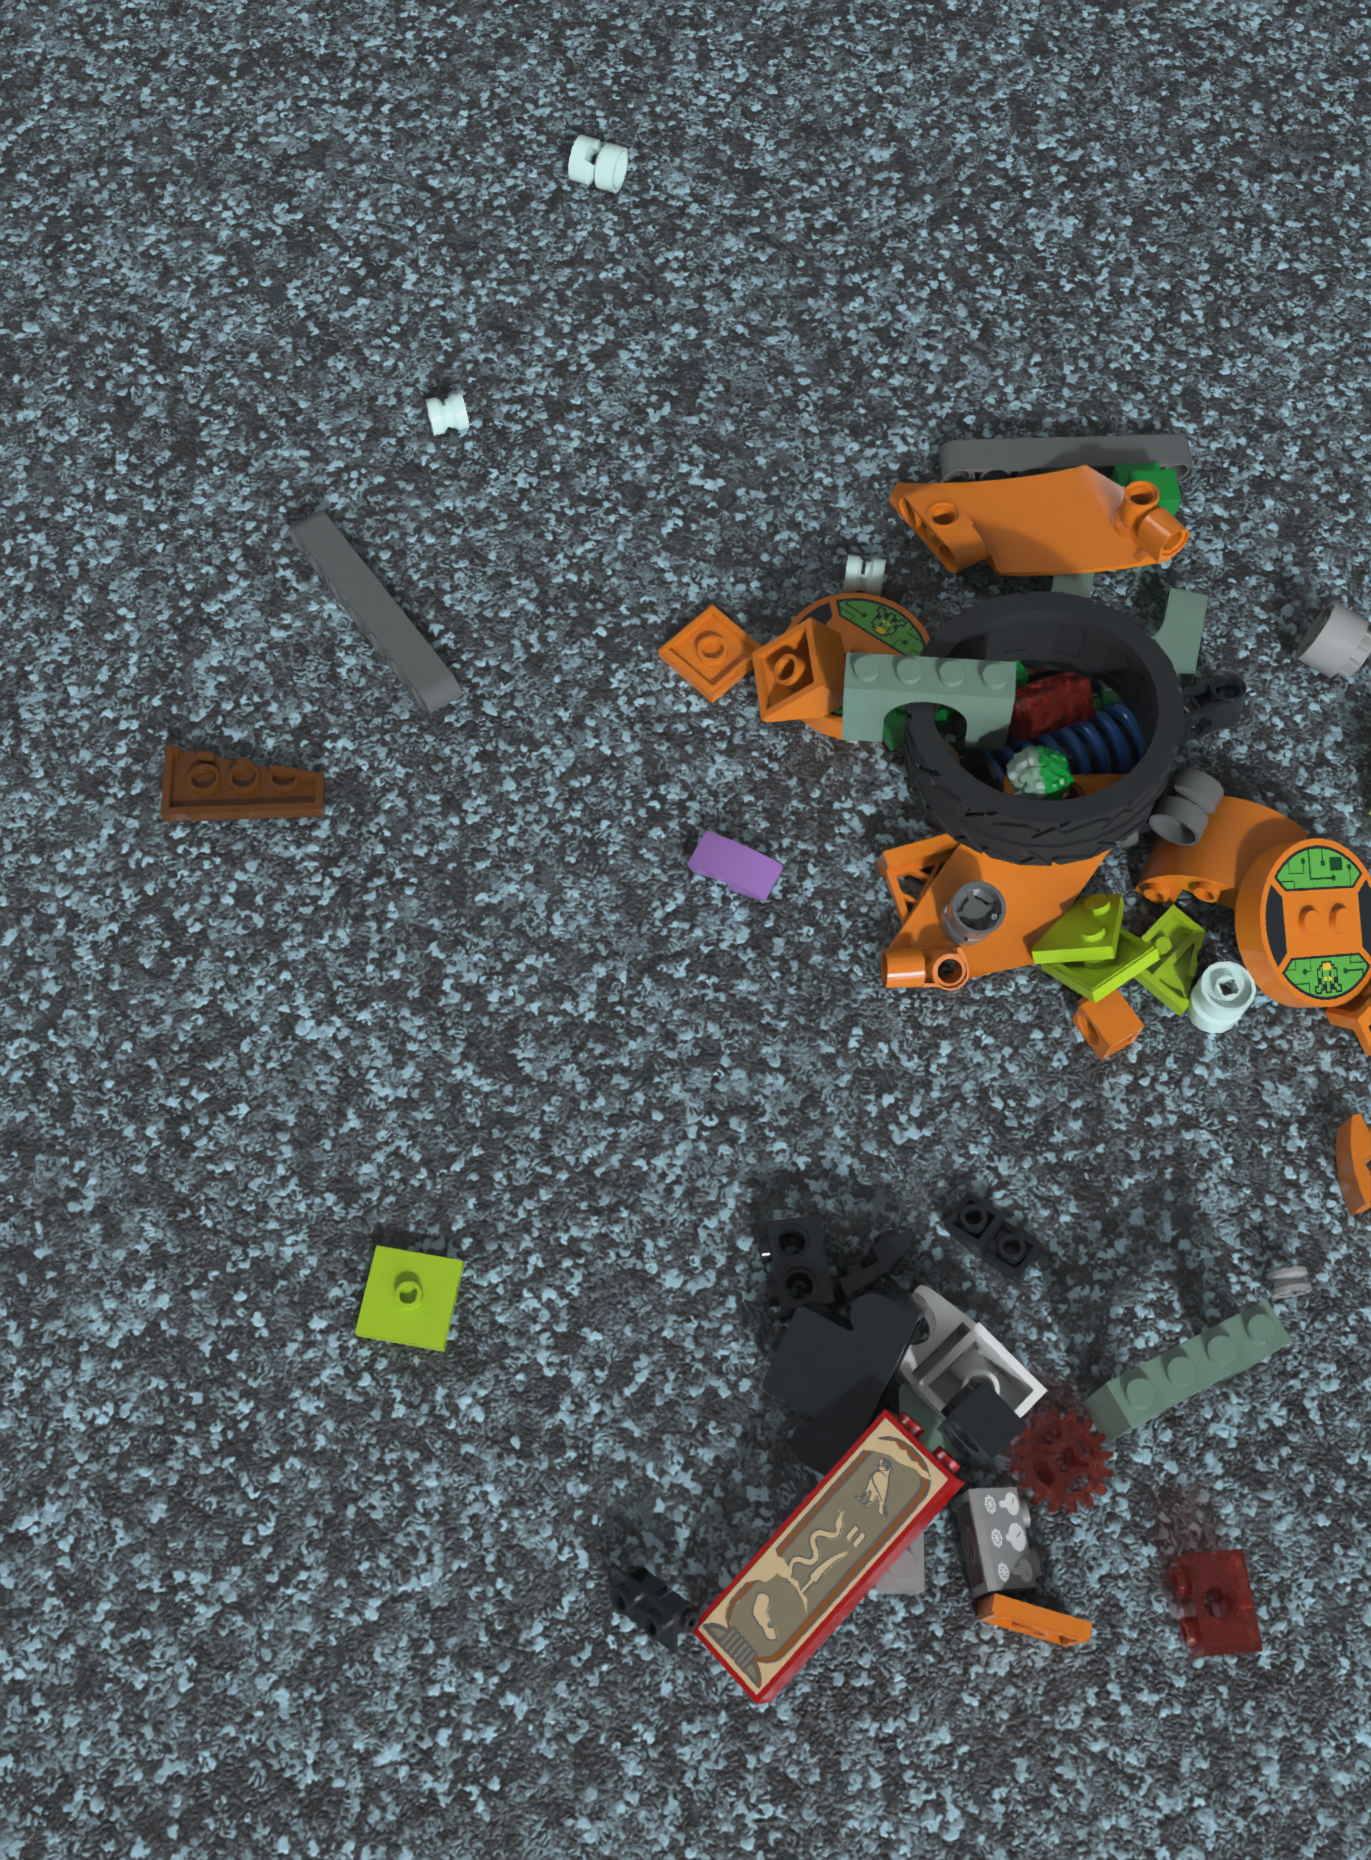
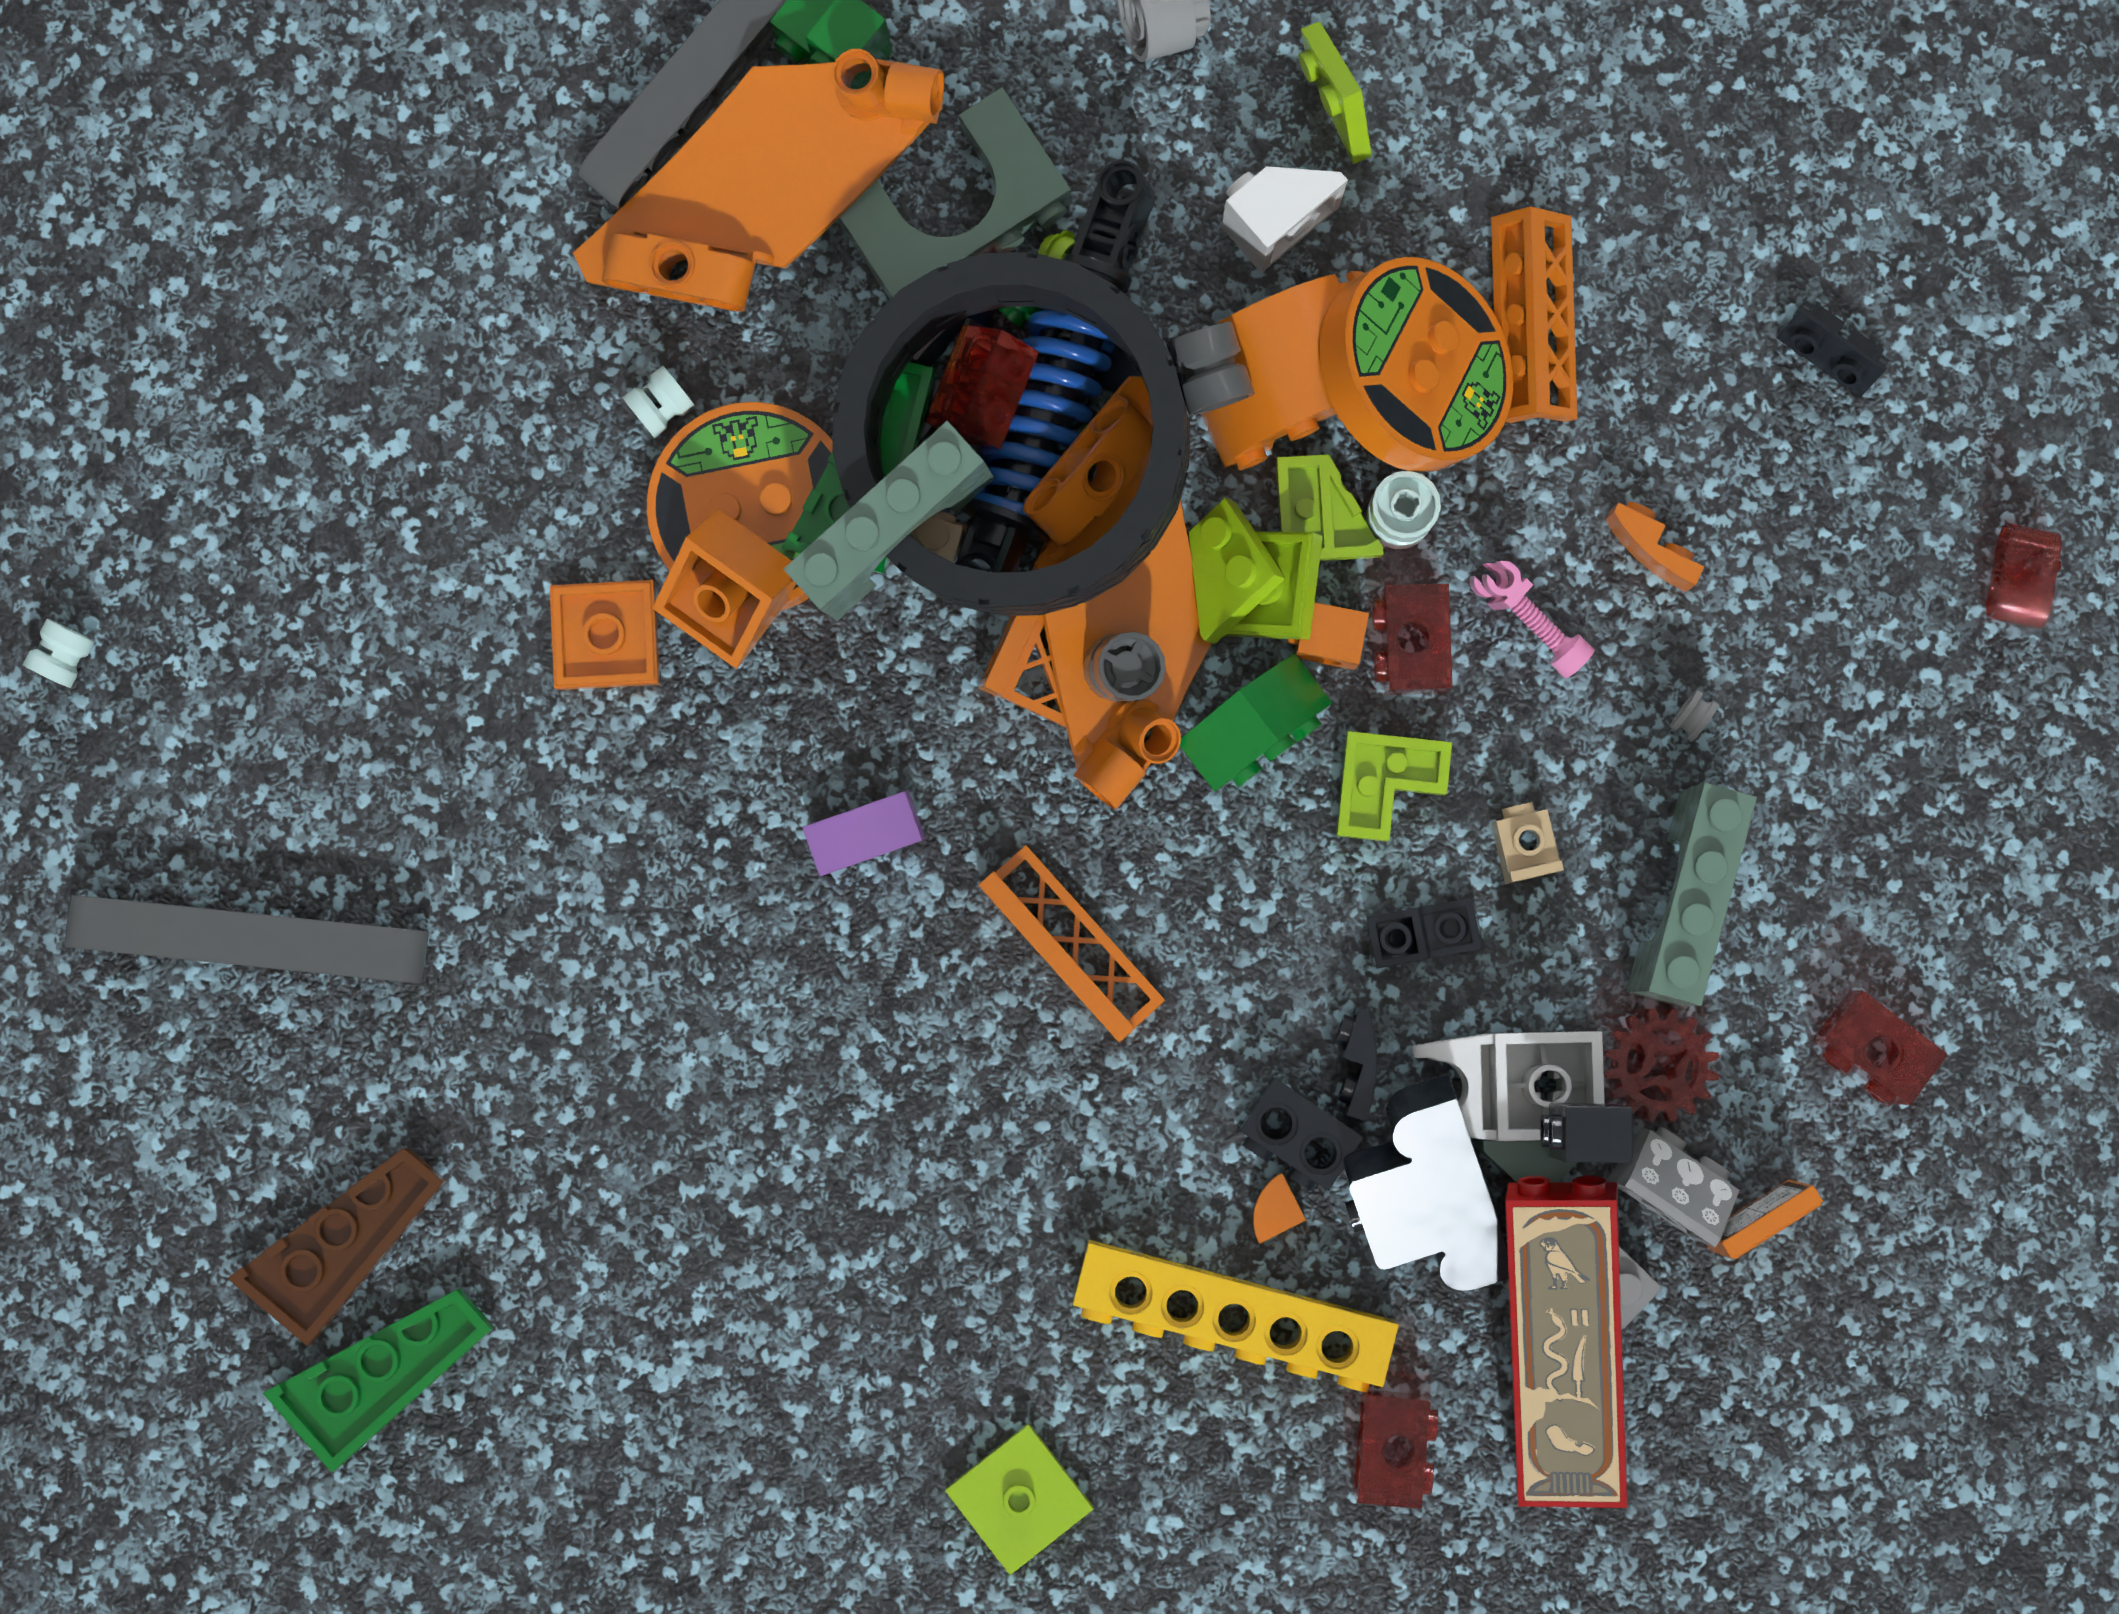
camera: 40 degrees left, 20 degrees up
(158, 866) = (368, 1384): none -> green wing
(605, 1220) = (1369, 1334): none -> yellow brick
(637, 1596) = (1490, 1523): black hinge -> none
(665, 1484) = (1389, 1482): none -> clear red brick
(736, 1298) = (1275, 1209): none -> orange tile
(766, 1035) = (1057, 957): none -> orange fence
(1015, 1014) = (1256, 724): none -> green brick
(1039, 774) = (1071, 503): piece -> none
(1062, 1119) = (1376, 768): none -> lime plate
(1099, 1260) = (1517, 862): none -> tan brick
(1145, 1094) = (1427, 610): none -> clear red brick
(1242, 1170) = (1568, 653): none -> bright pink bar
(1309, 783) = (1278, 209): none -> white slope

